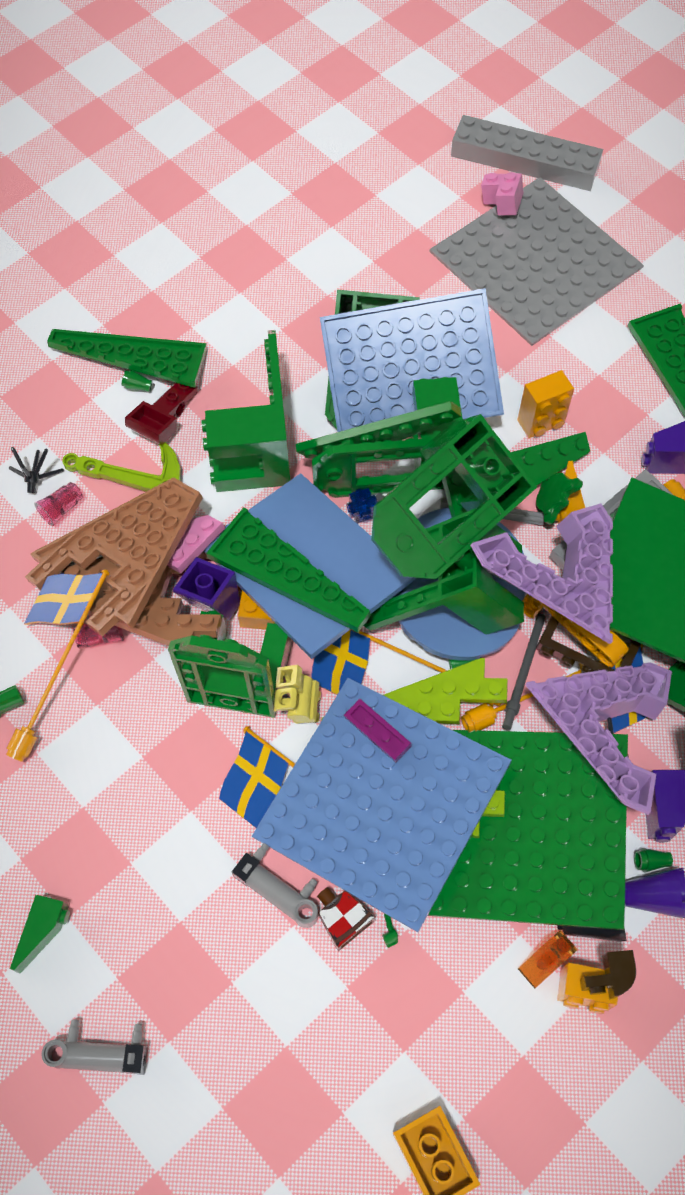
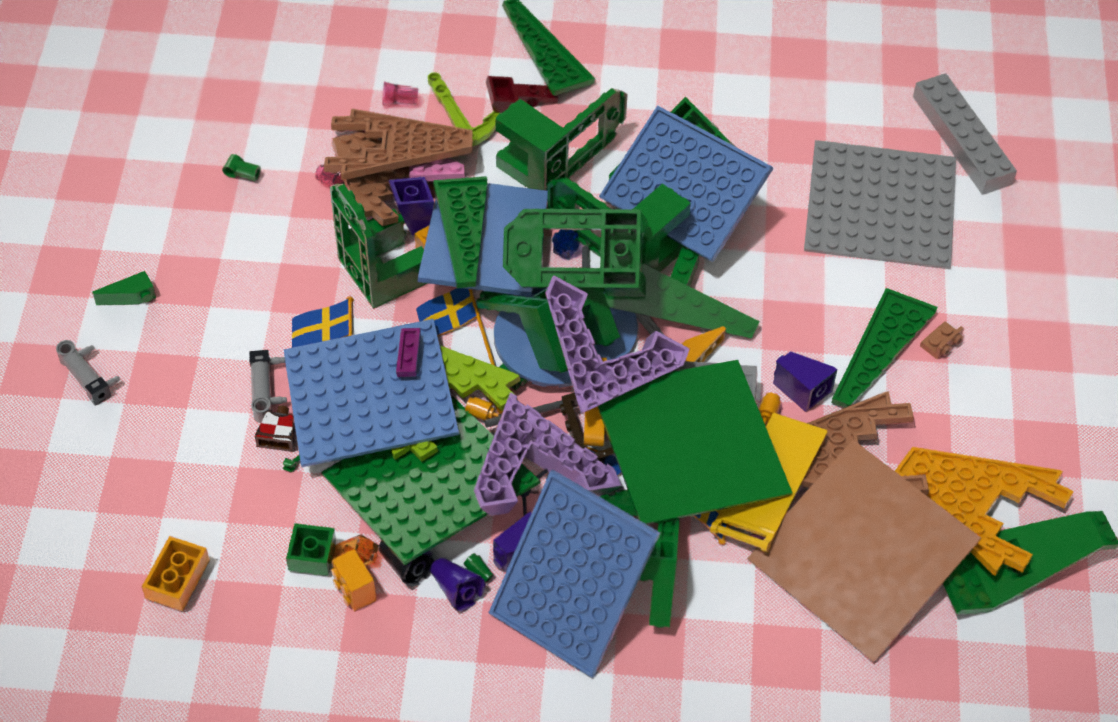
camera: 45 degrees right, 10 degrees down
(32, 477) = (403, 69): black plant -> none
(60, 601) = (326, 144): flag -> none
(135, 381) = (526, 65): green cone -> none
(303, 694) = (397, 303): light yellow hips -> none
(392, 429) = (611, 195): green wing -> none
(504, 191) = (907, 142): bright pink brick -> none
(515, 998) = (311, 549): none -> green brick
(545, 404) = (748, 280): light orange brick -> none
(554, 495) = (689, 334): green tile -> none
(618, 977) = (366, 575): dark brown brick -> none

